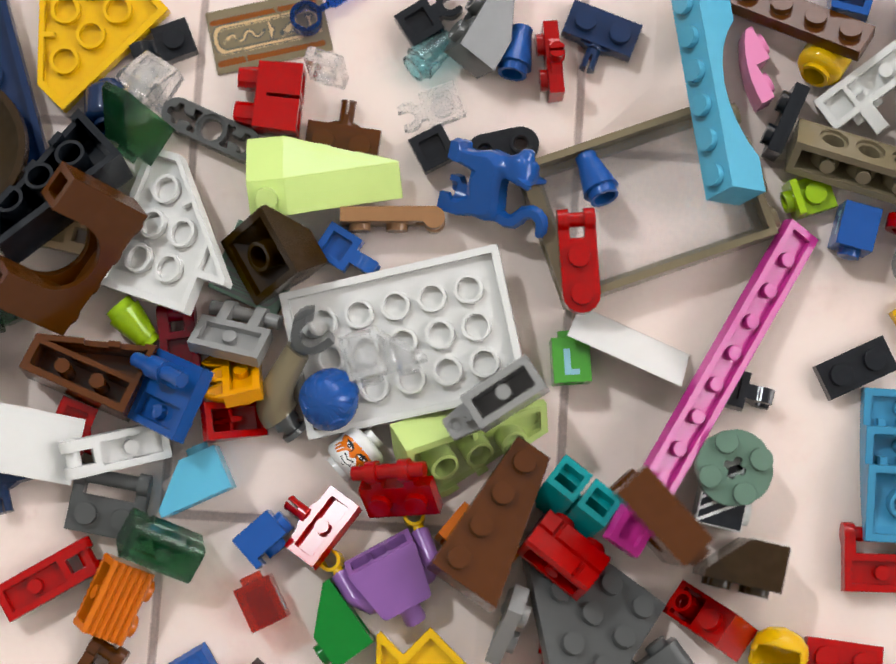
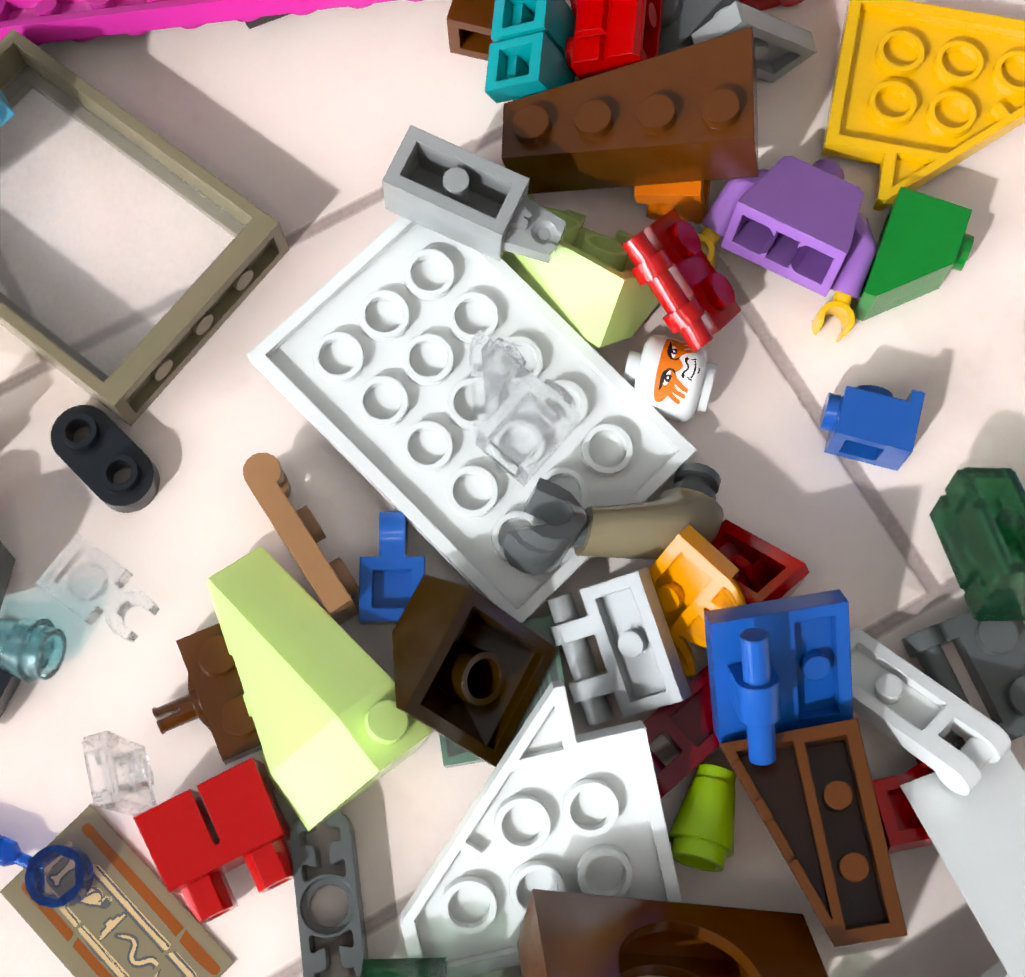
camera: 120 degrees left, 10 degrees down
(197, 479) = (869, 563): medium azure slope -> none
(261, 601) = (958, 370): clear red brick -> none
(320, 525) = (800, 361): plate -> none
(329, 399) = (621, 446): blue hair -> none
(431, 148) = (161, 550): black plate -> none
(488, 184) = (180, 424): blue animal -> none
(569, 361) = (348, 186): bright green brick -> none
(578, 261) = (202, 238): red plate -> none
(597, 182) = (72, 292): blue cone -> none
(630, 346) = (285, 122): white sticker -> none

